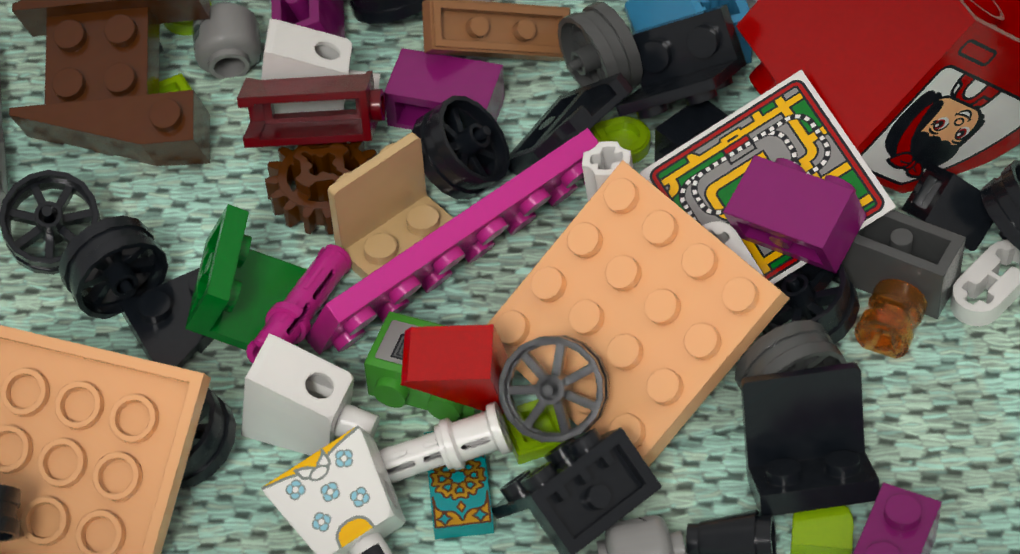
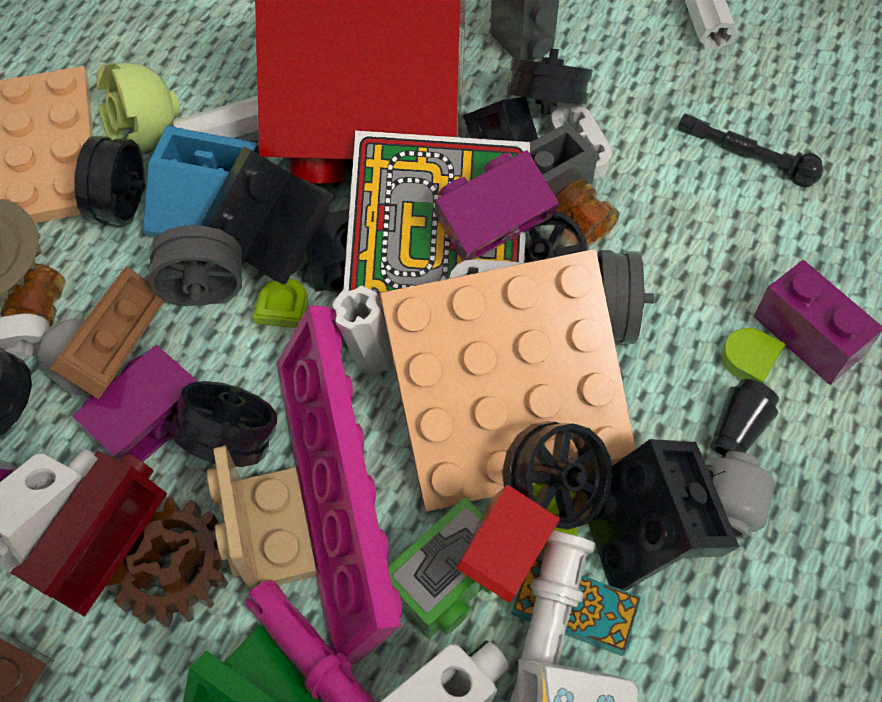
camera: 65 degrees left, 10 degrees up
(568, 118) = (249, 329): black wing -> none
(806, 440) = (692, 330): black bracket -> none

